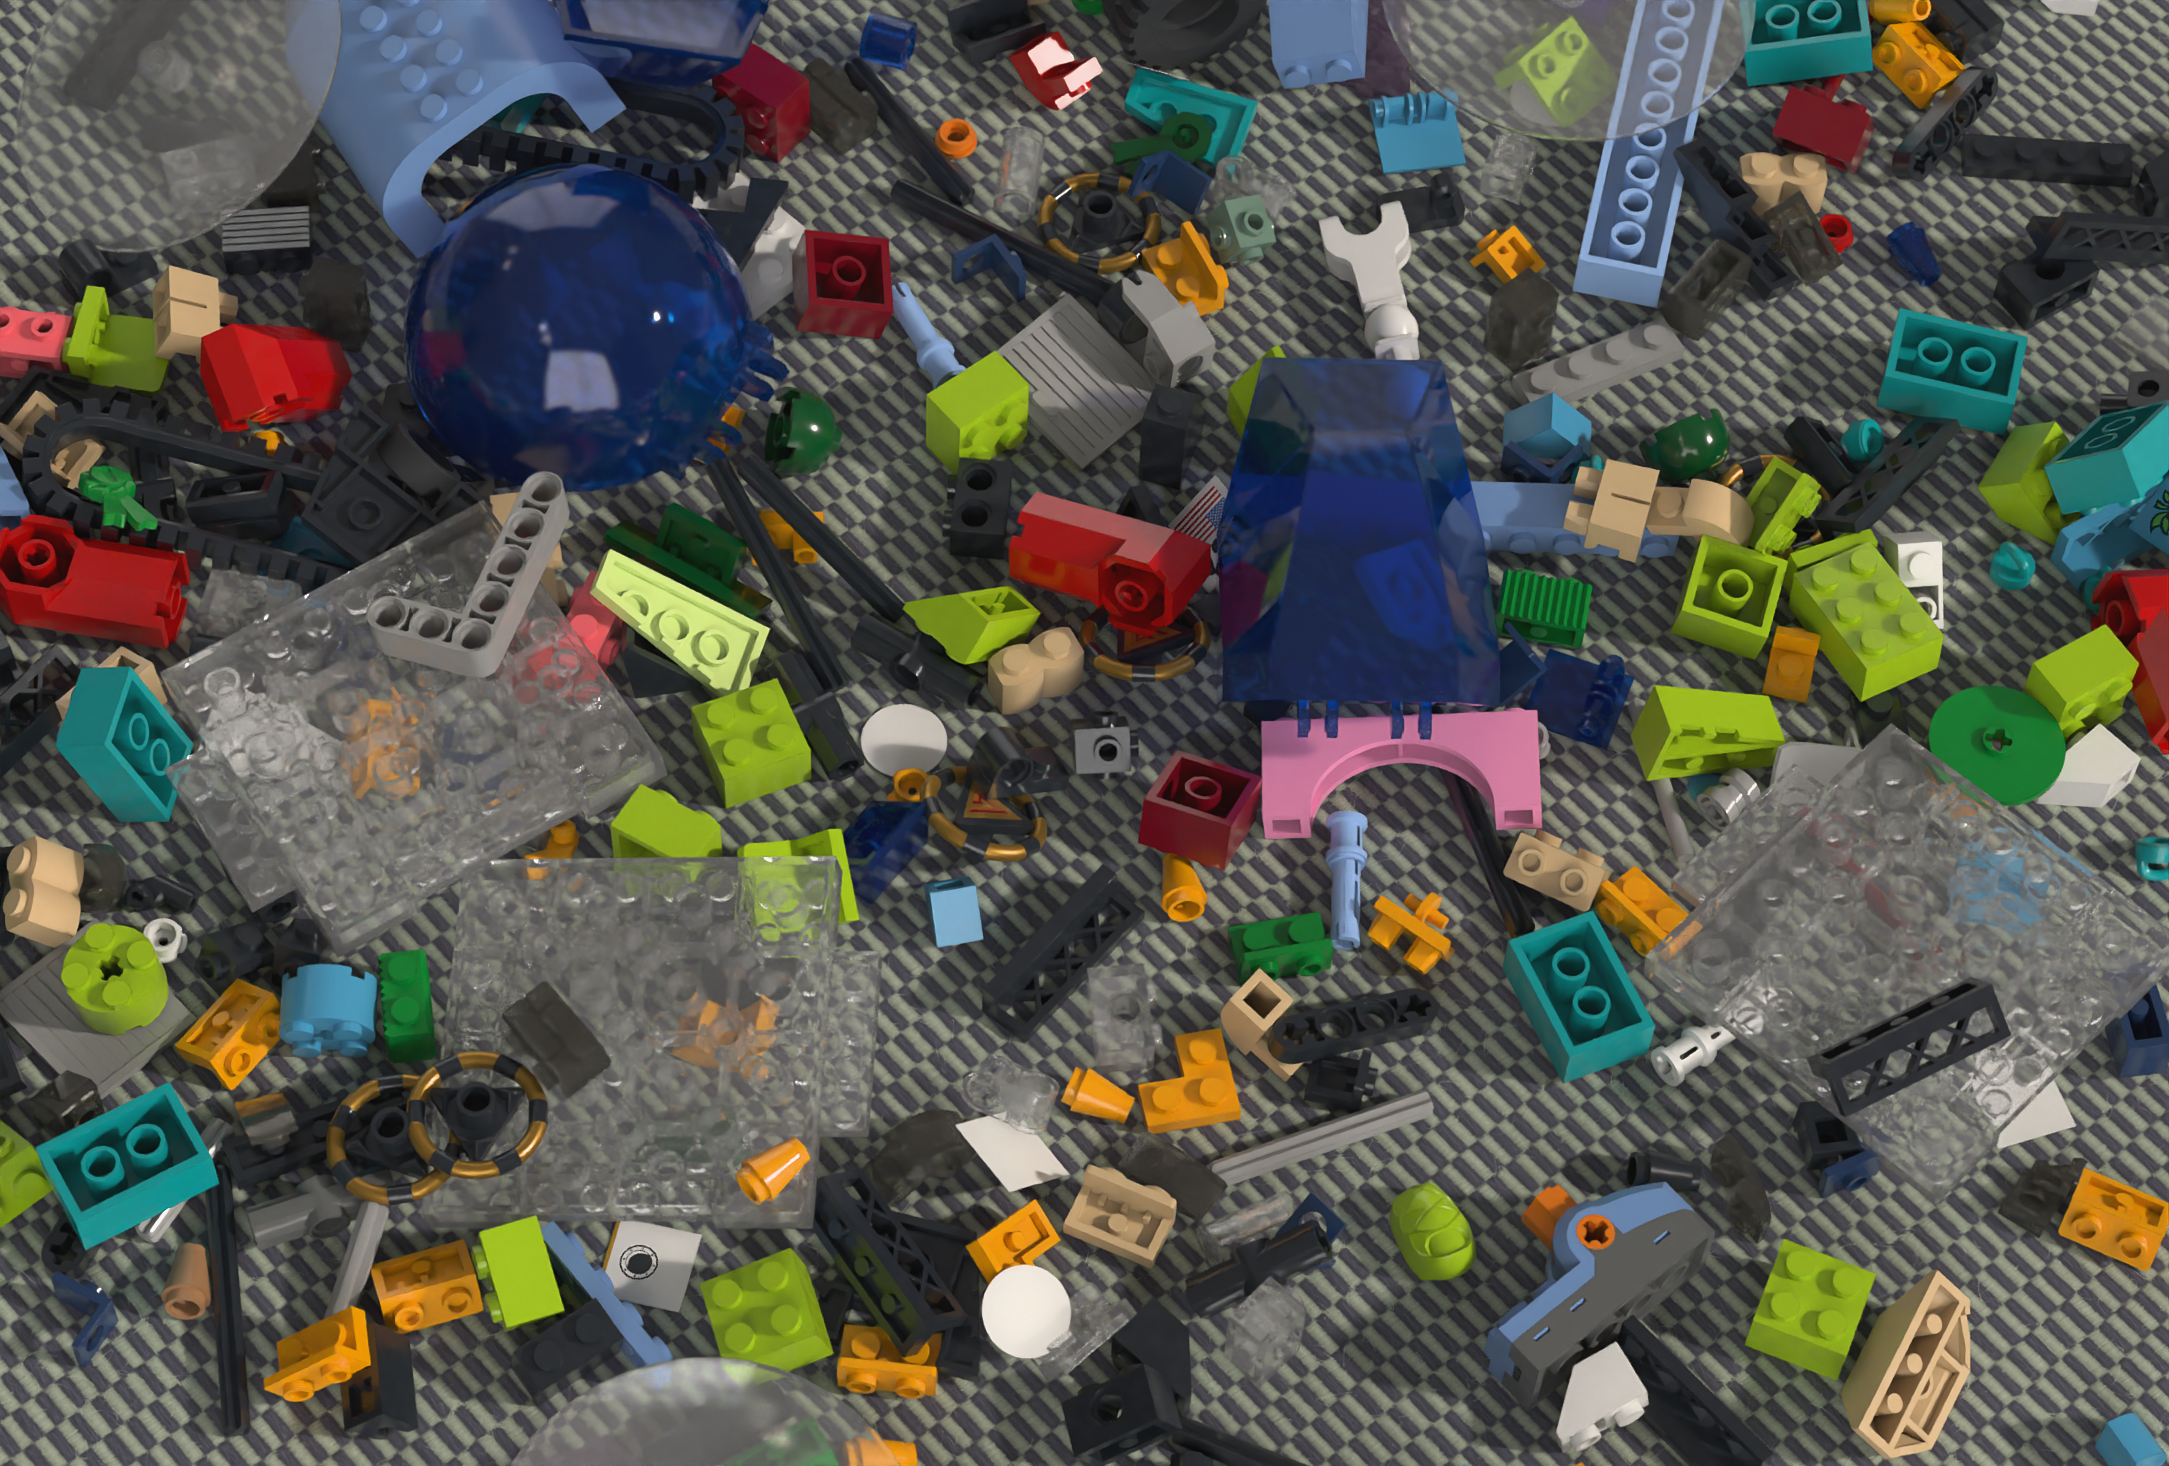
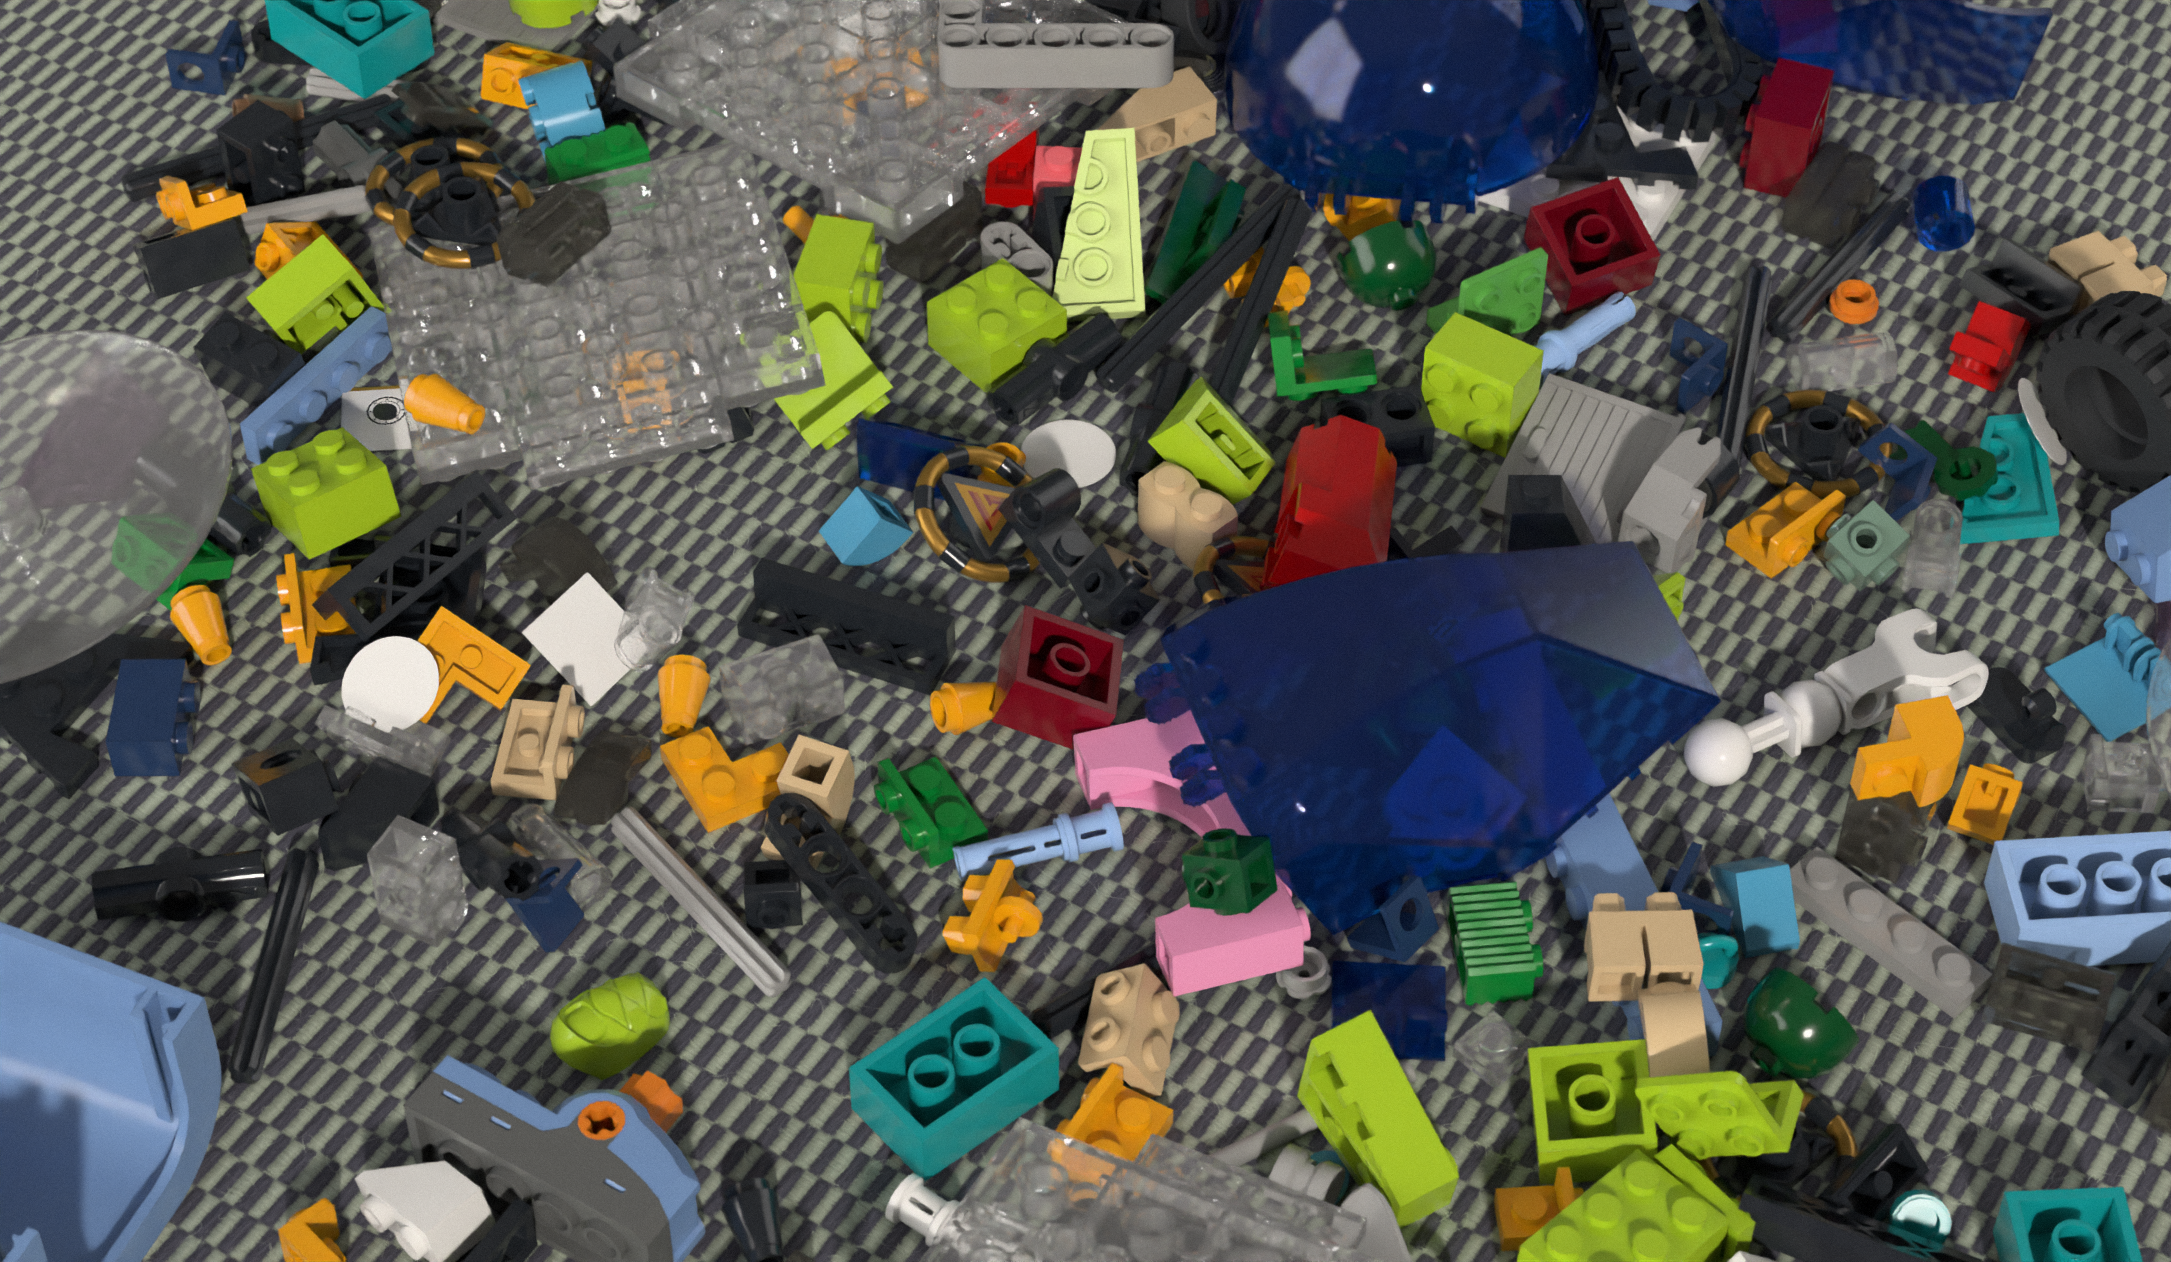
camera: 75 degrees right, 10 degrees down
(285, 1284) = (261, 155): none -> black brick
(657, 705) = (1017, 248): none -> light grey beam
(871, 383) = (1501, 297): none -> bright green bracket
(903, 521) = (1306, 376): none -> green bracket
(1494, 735) = (1229, 872): none -> dark green brick
(1522, 257) = (1918, 753): none -> light orange brick
(1633, 643) = (1493, 1049): none -> clear plate

